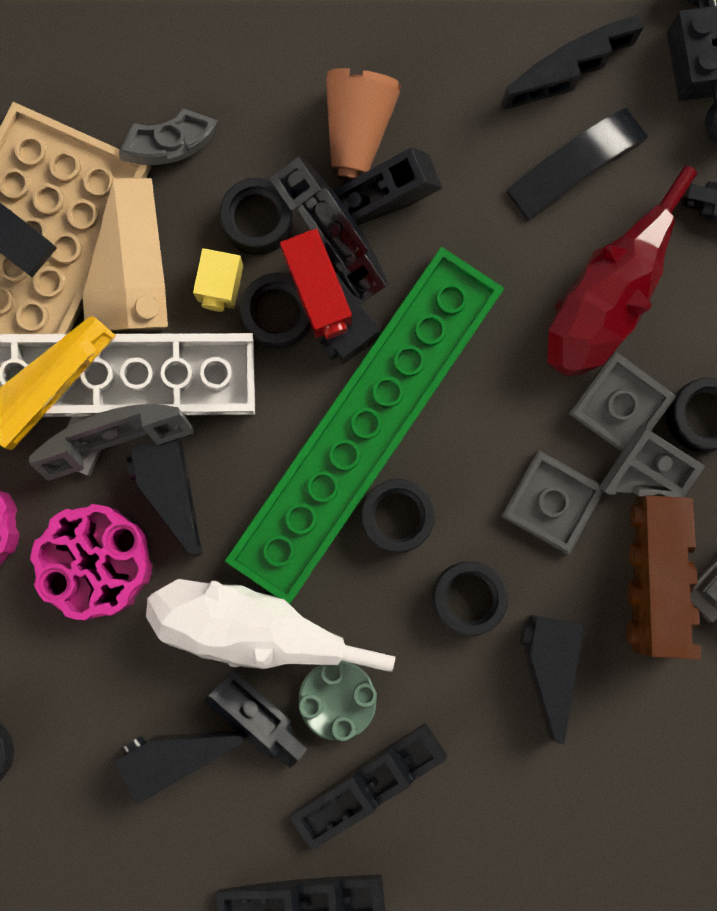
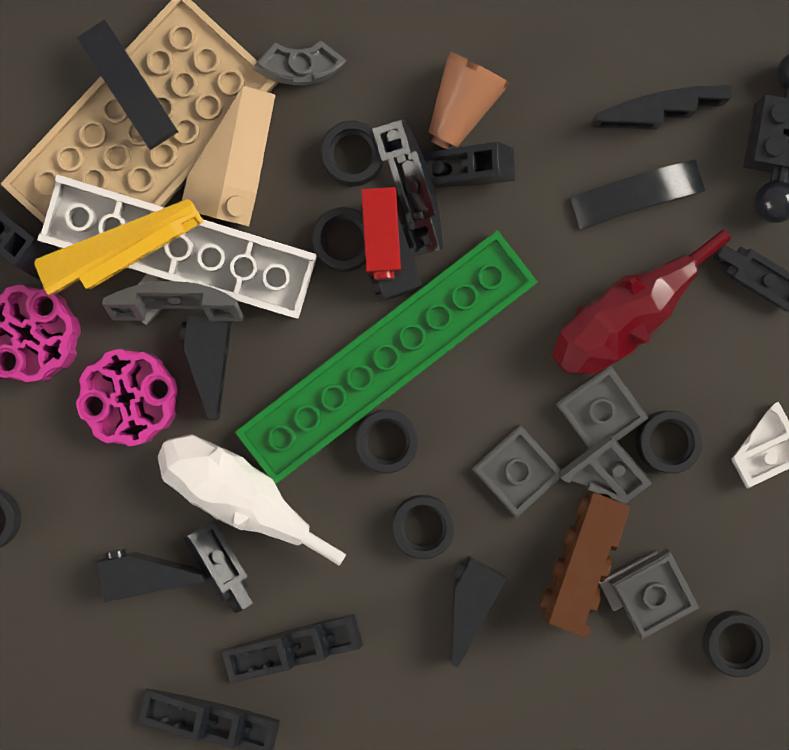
camera: 25 degrees right, 5 degrees up
(218, 280) = (303, 198): light yellow brick -> none
(337, 701) = (289, 573): sand green dish -> none

